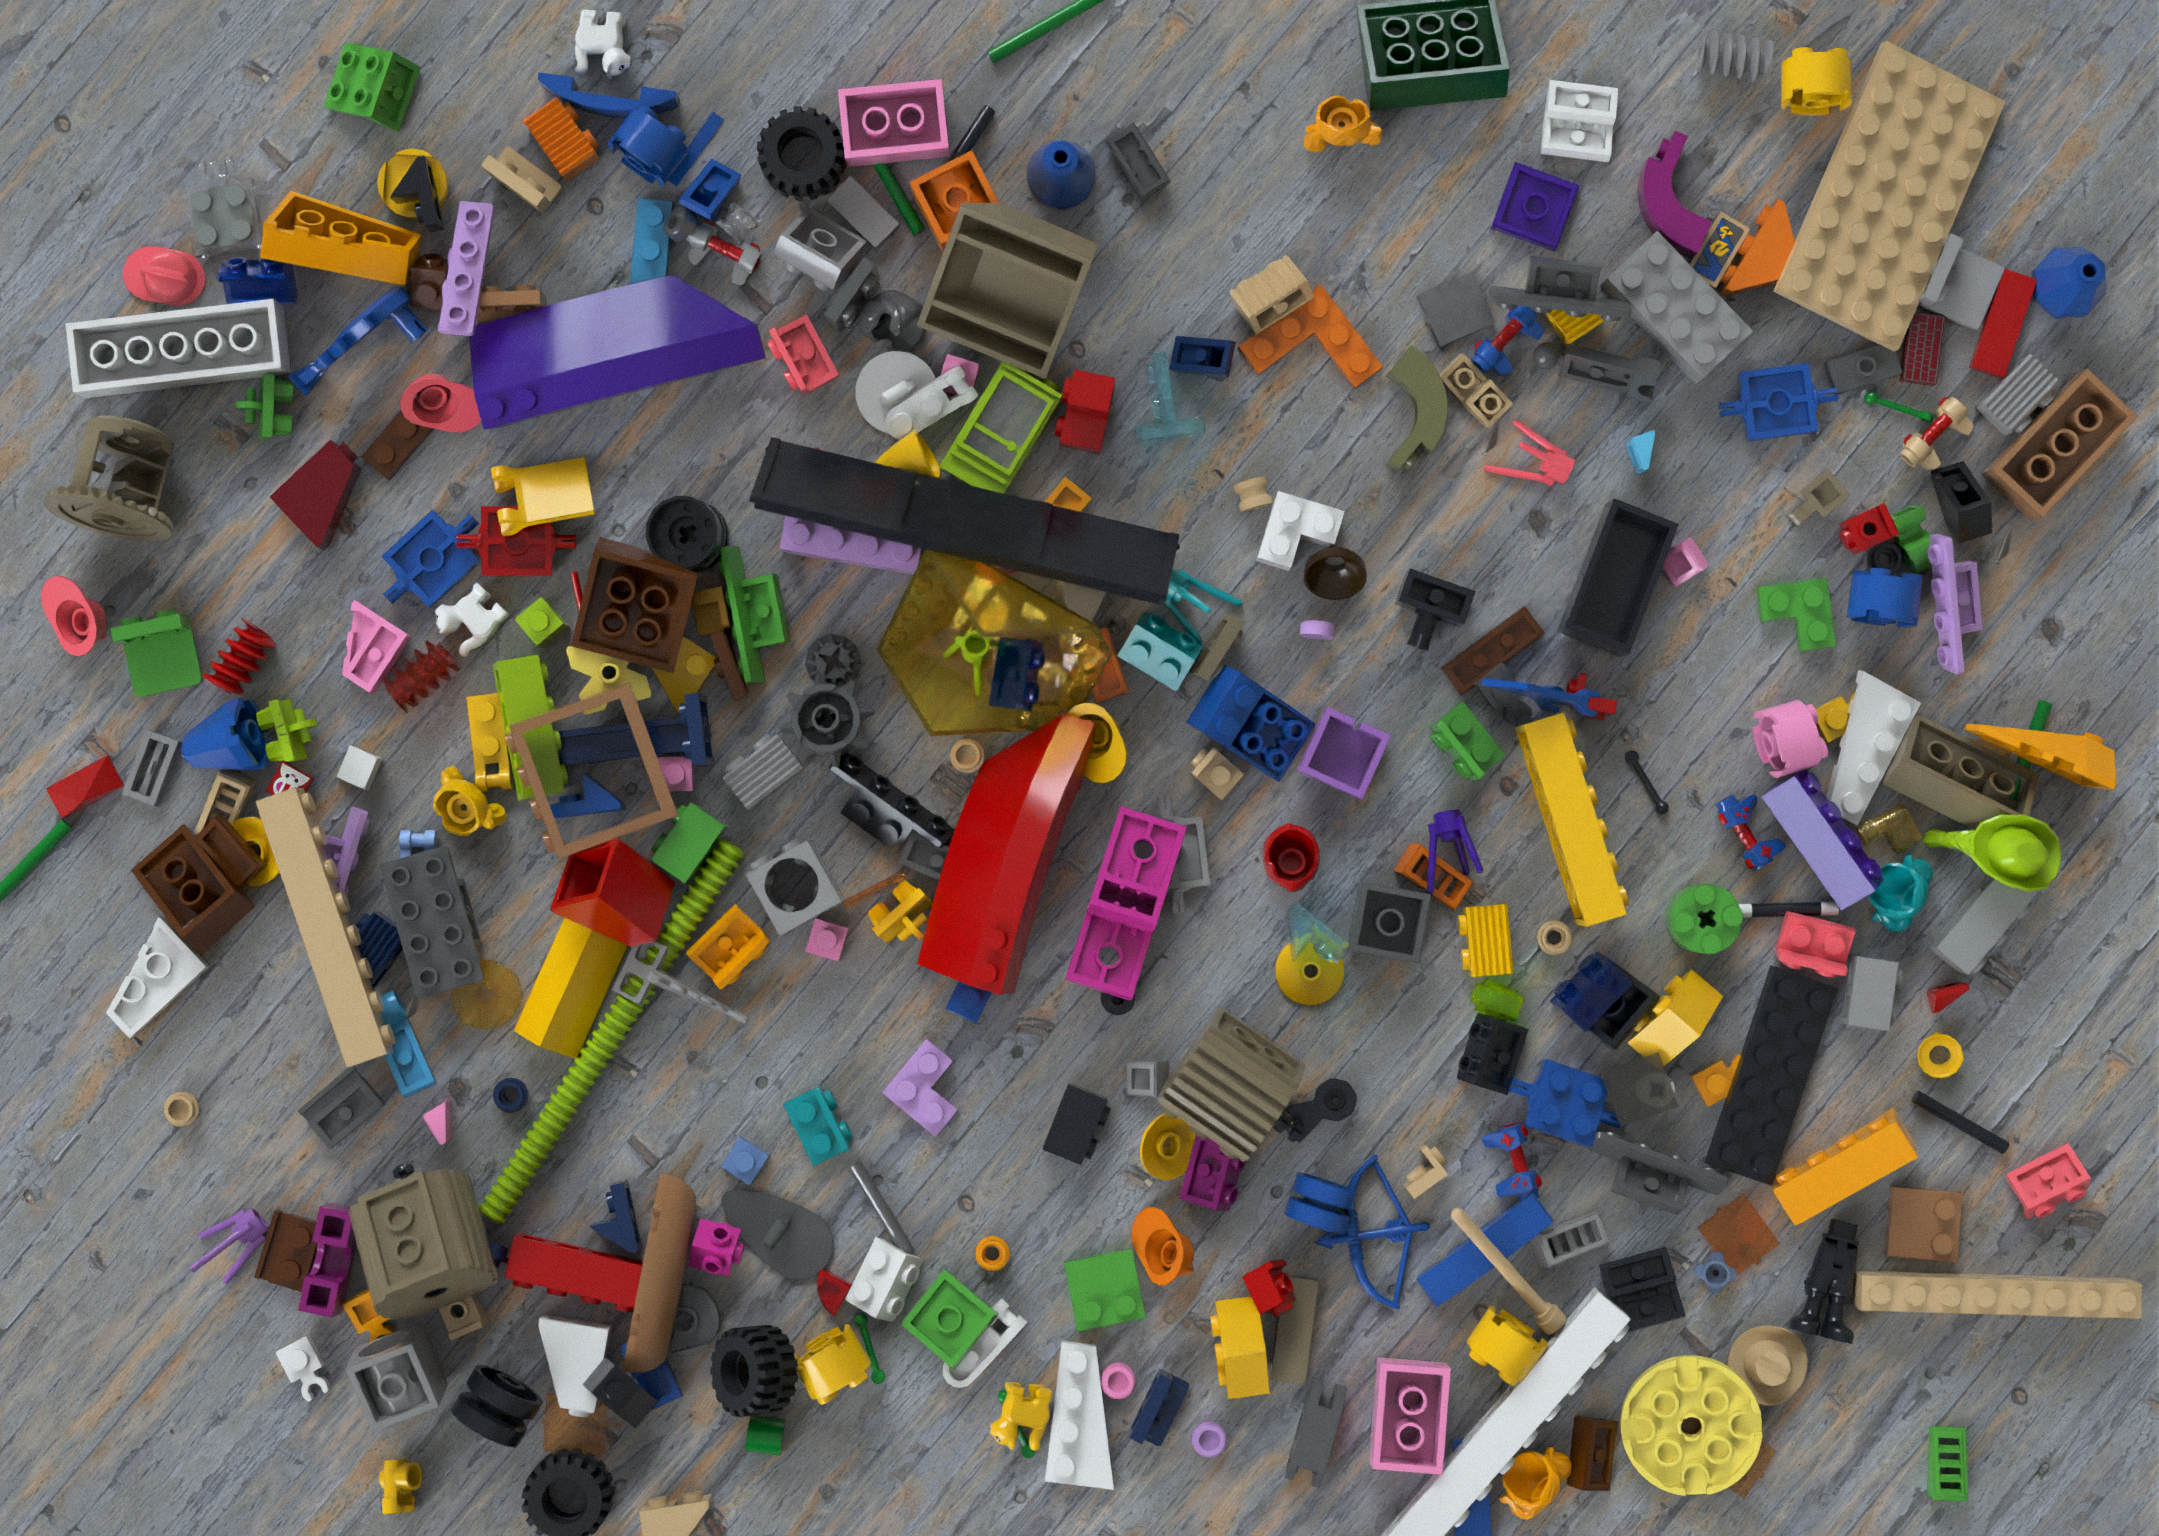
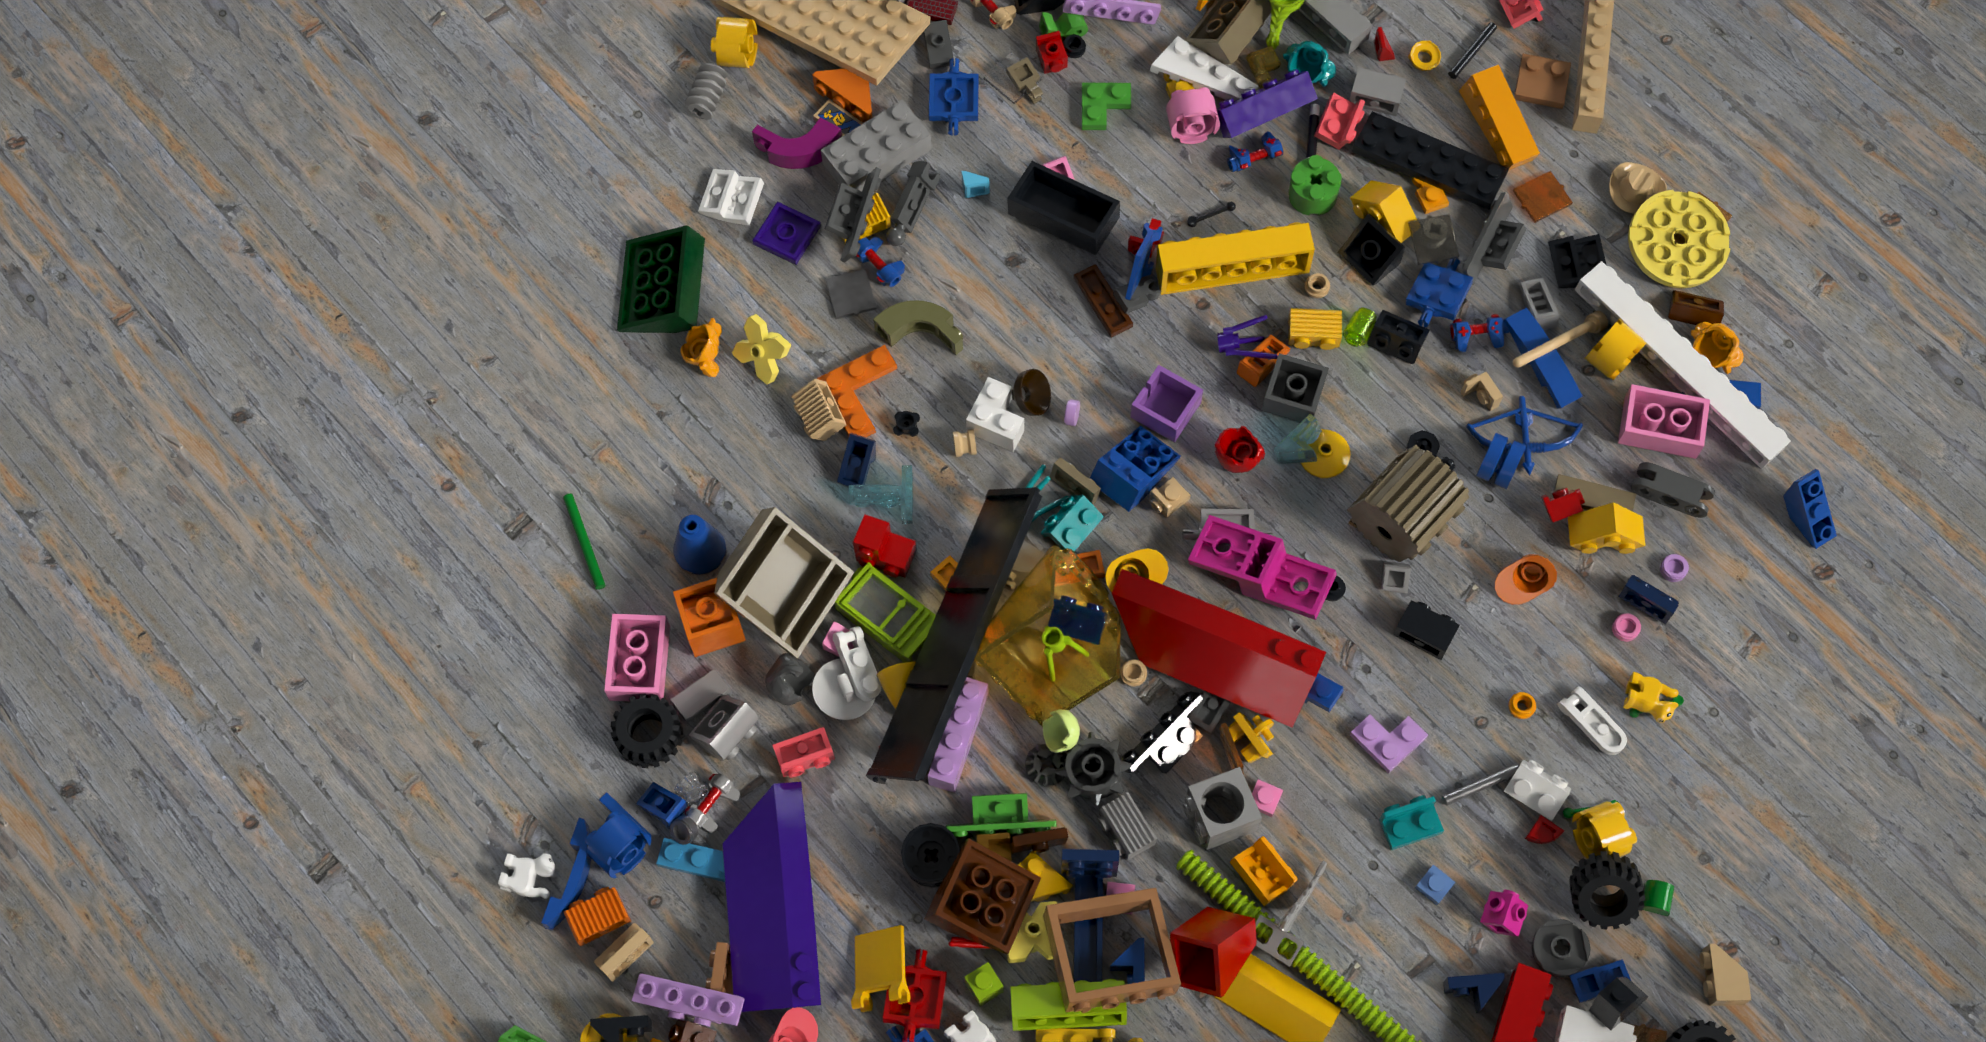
camera: 75 degrees left, 20 degrees down
(661, 1275) = (1525, 954): medium nougat brick -> none
(688, 842) = (1177, 890): bright green brick -> none
(780, 1232) = (1494, 865): dark grey shield -> none
(860, 285) = (771, 709): dark grey plate -> none
(865, 673) = (1061, 731): none -> yellowish green hair
(899, 198) = (694, 668): green bar -> none
(949, 1319) = (1572, 741): bright green plate -> none
(973, 132) = (660, 608): black bar -> none
(1078, 1429) = (1668, 660): white wing -> none
(1104, 1289) = (1555, 627): bright green plate -> none
(1137, 161) = (701, 491): dark grey plate -> none
(1171, 1158) = (1449, 563): yellow dish -> none
(1211, 1176) = (1471, 538): magenta bracket -> none
(1280, 407) = (903, 417): none -> black plate
(1350, 205) = (762, 348): none -> light yellow plant
(1433, 602) = (1062, 330): black brick -> none
(1467, 742) = (1169, 324): bright green bracket -> none
(1475, 391) = (914, 287): tan slope -> none
(1554, 462) = (974, 242): coral plant -> none
(1591, 990) = (1358, 263): clear blue bracket -> none
(1726, 1273) = (1573, 207): sand blue plate -> none
(1832, 1276) = (1580, 140): black piece -> none
(1872, 398) = (960, 41): green hinge -> none
(1884, 598) = (1102, 44): blue brick -> none
(1960, 1477) = (1713, 79): bright green slope -> none

